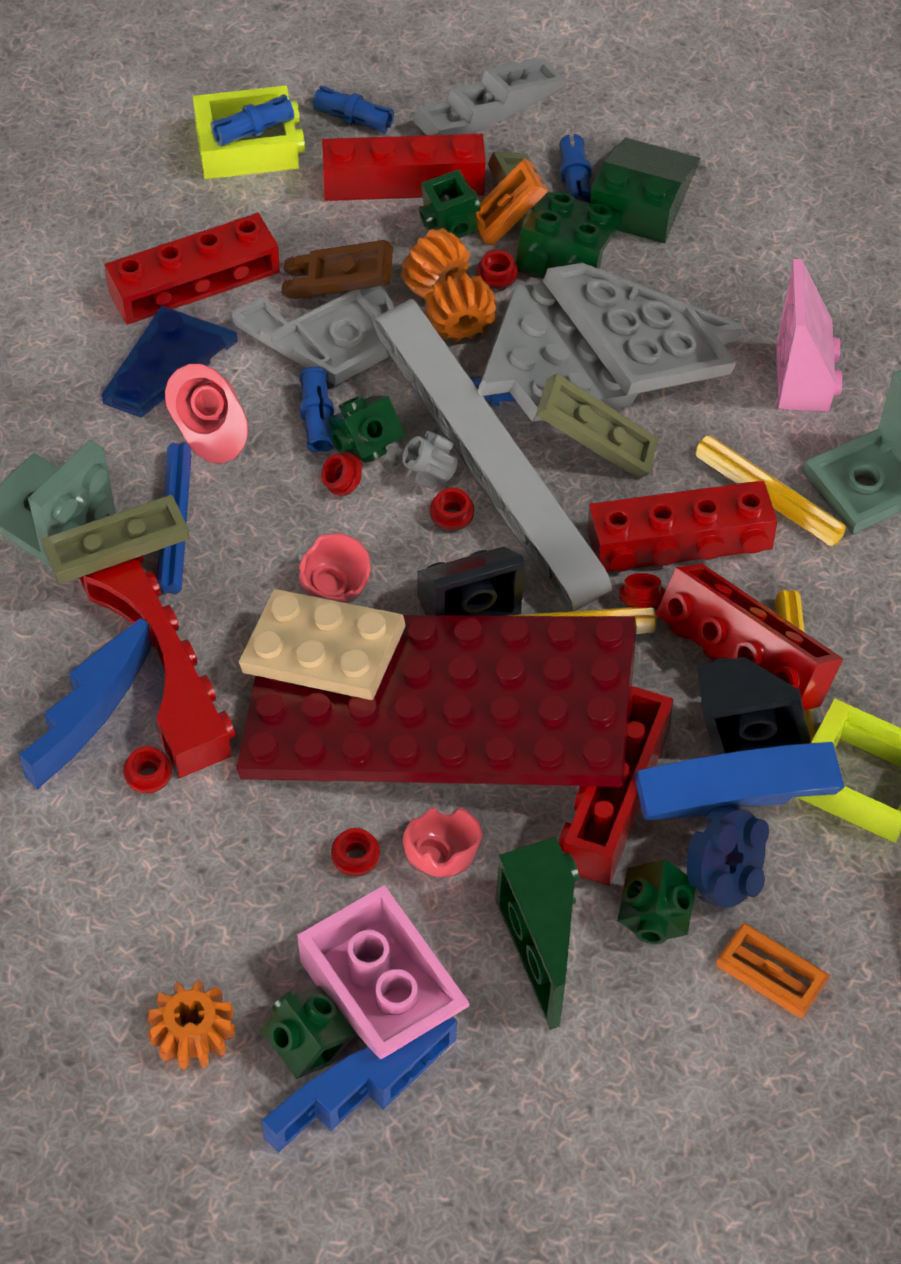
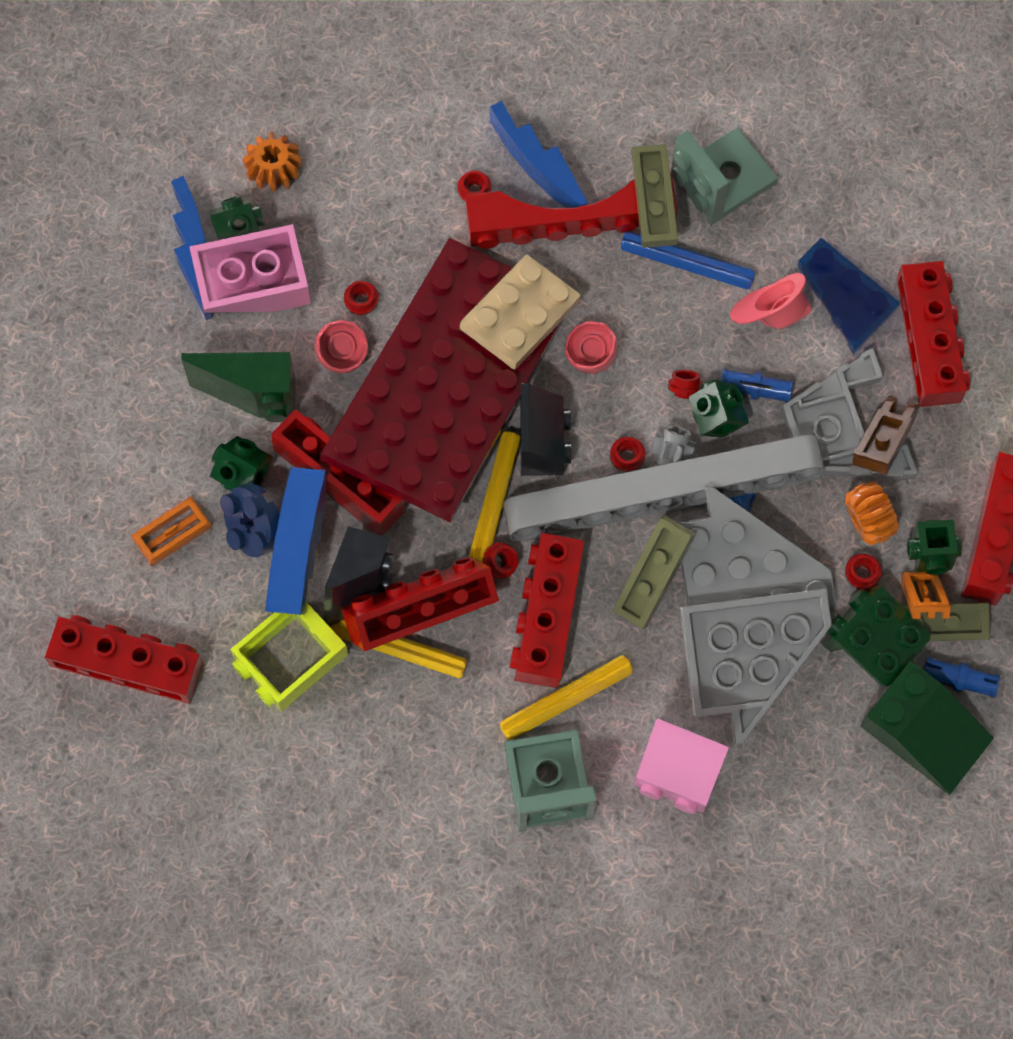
camera: 110 degrees right, 15 degrees up
(460, 307) = (817, 516): orange gear -> none

